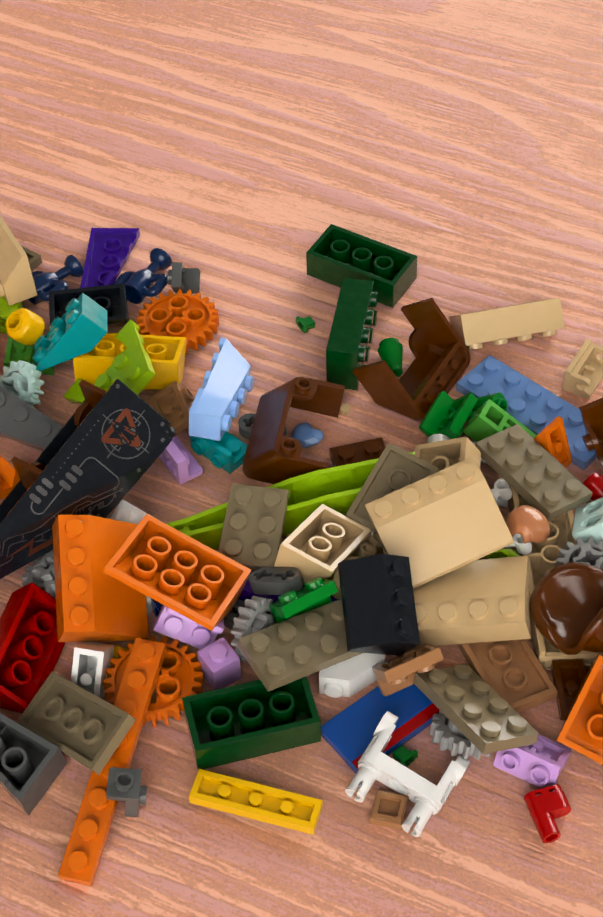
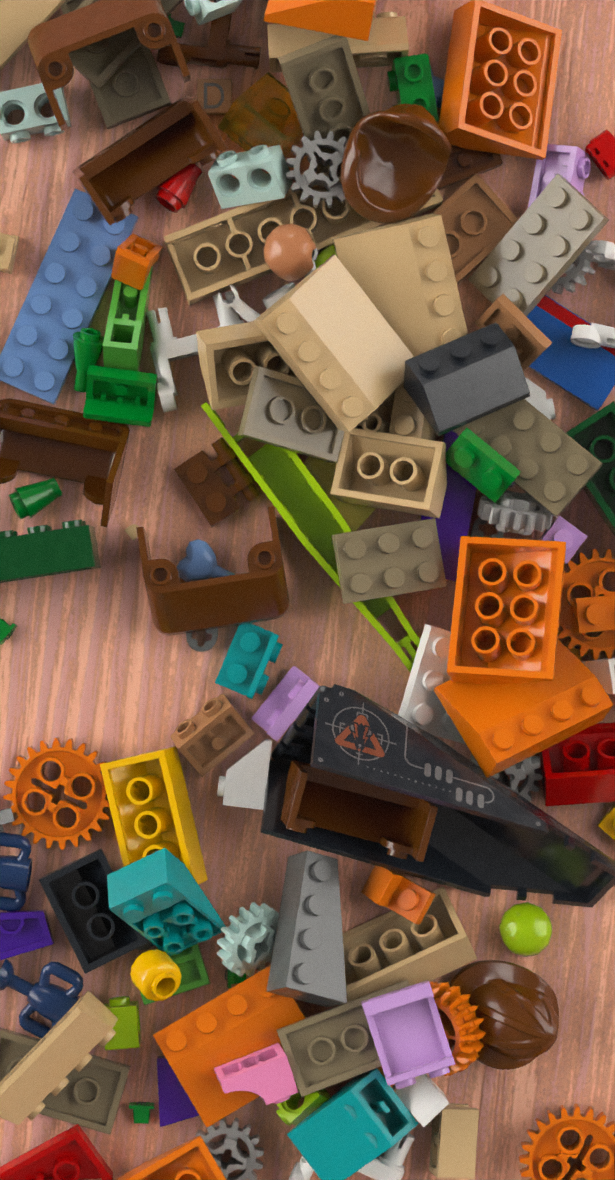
camera: 110 degrees left, 40 degrees up
(130, 367) = (213, 805): lime wing -> none
(221, 393) = (190, 679): light blue wedge -> none
(275, 580) = (465, 507): dark grey beam -> none
(405, 756) = (598, 313): green piece -> none
(533, 472) = (197, 266): dark tan plate -> none

